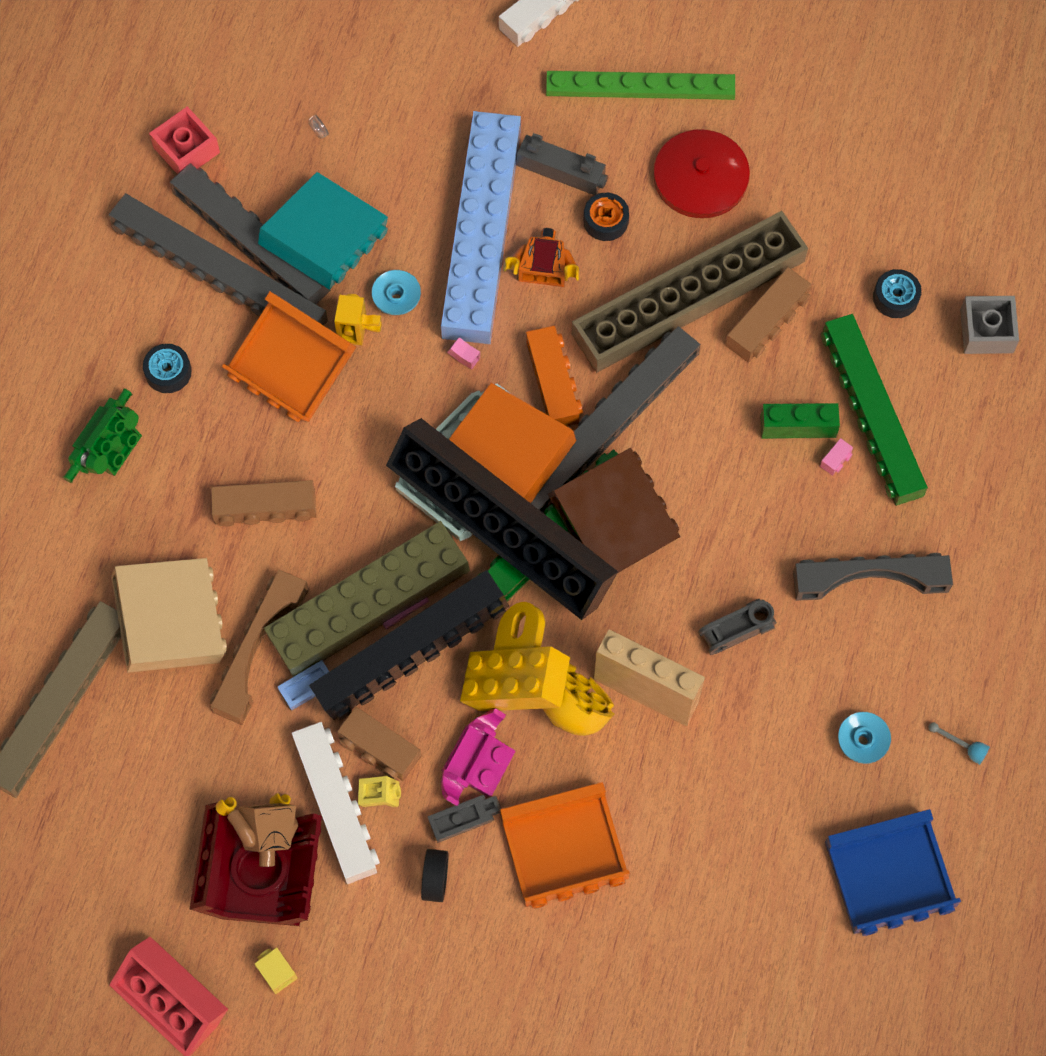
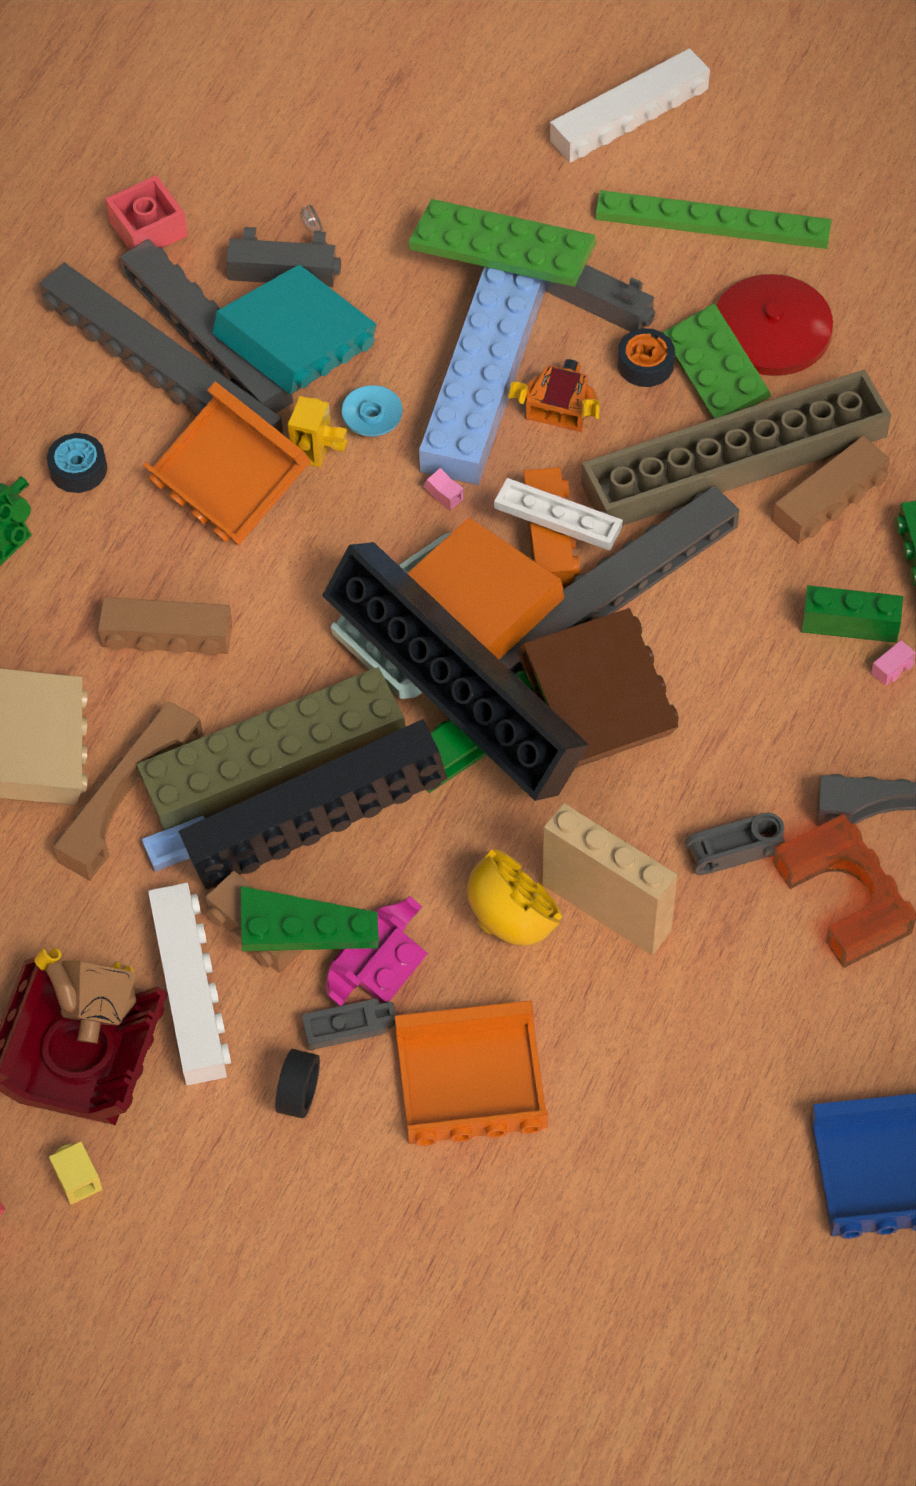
camera: 10 degrees right, 10 degrees down
(299, 167) = (264, 260): none -> dark grey brick
(379, 791) = (246, 976): light yellow bracket -> none
(412, 745) = (296, 923): none -> green wing
(478, 134) = (502, 242): none -> bright green plate
(518, 670) = (446, 852): yellow brick -> none
(560, 369) = (558, 514): none -> white plate
(663, 216) = (716, 363): none -> bright green plate
(818, 620) = (840, 848): none -> clear orange arch
(872, 728) = (880, 982): medium azure dish -> none

